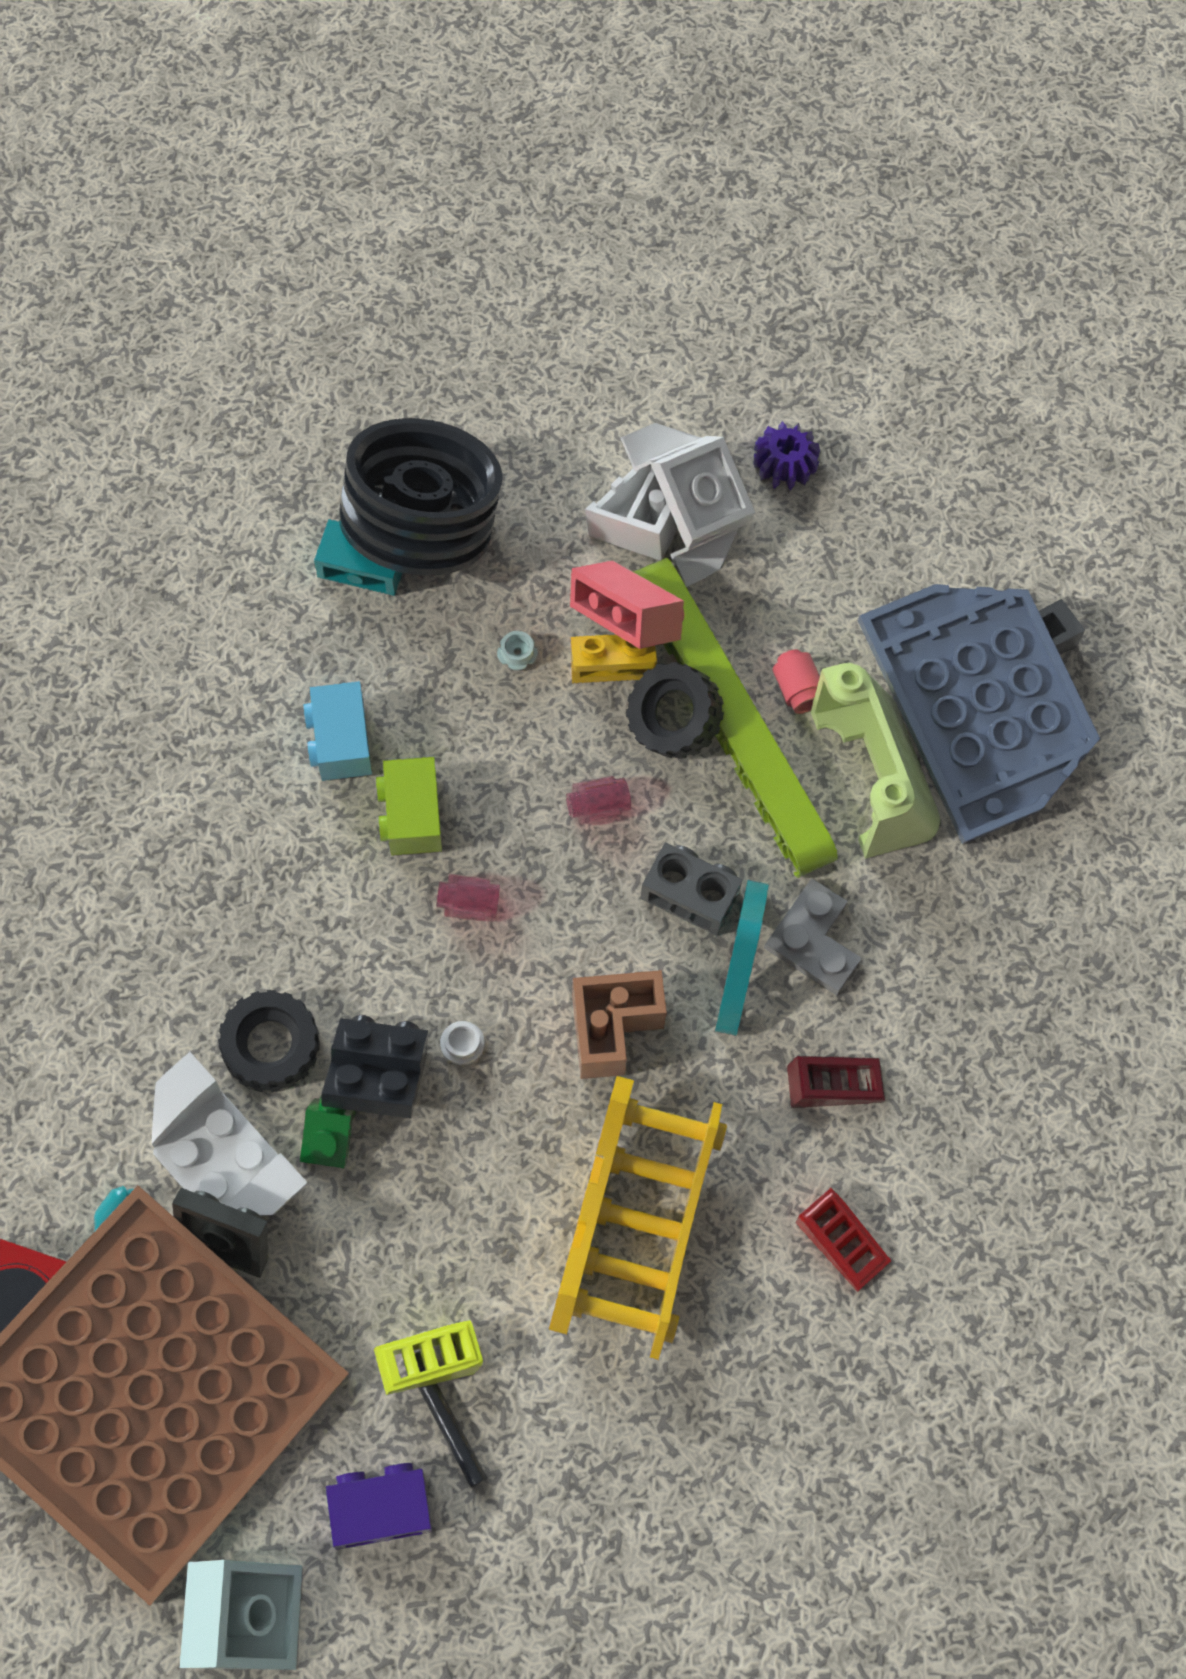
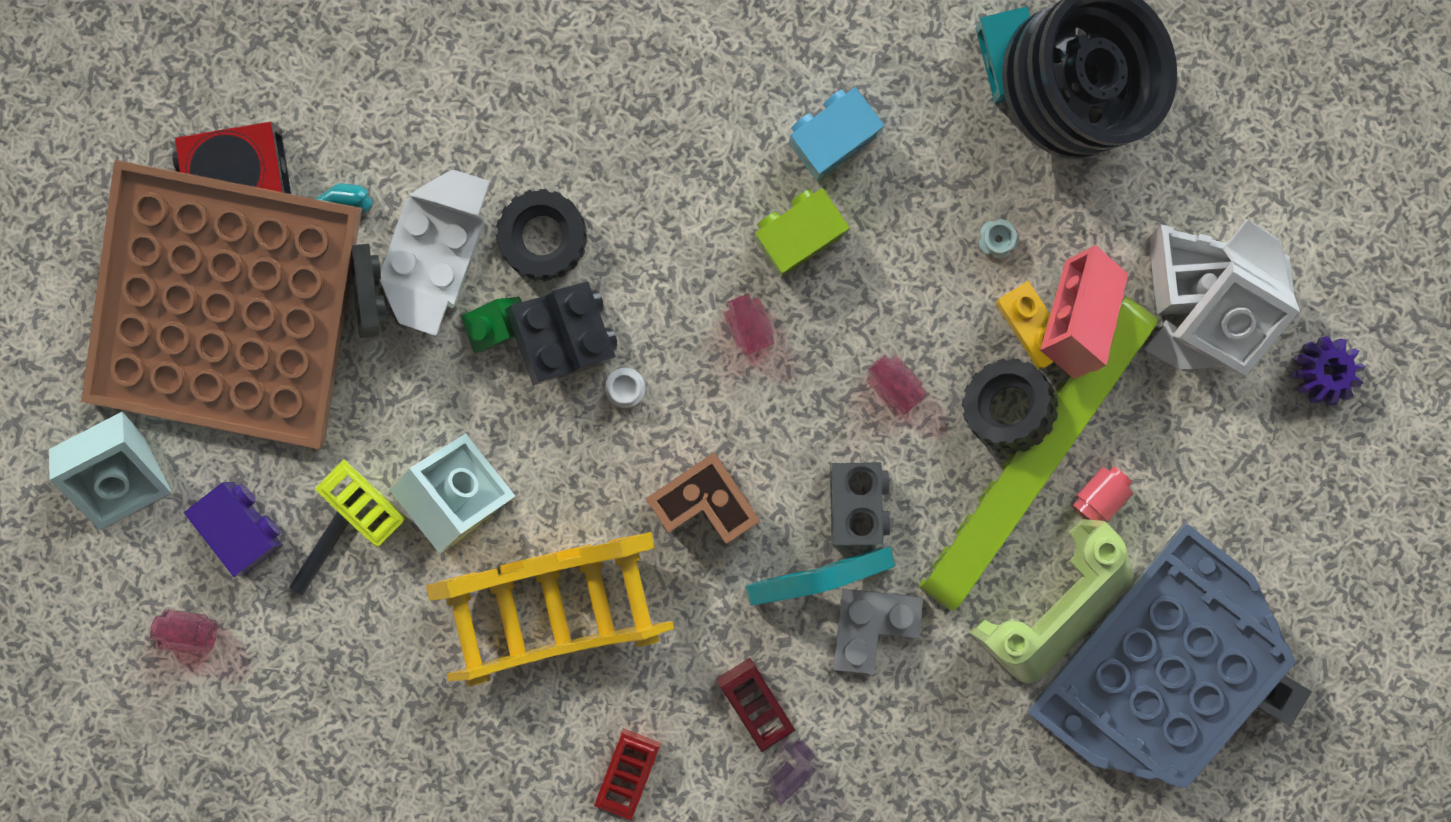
camera: 65 degrees right, 20 degrees up
(457, 1626) = (184, 632): none -> clear pink brick
(470, 1263) = (451, 492): none -> light aqua slope
(922, 1083) = (789, 777): none -> clear purple bracket

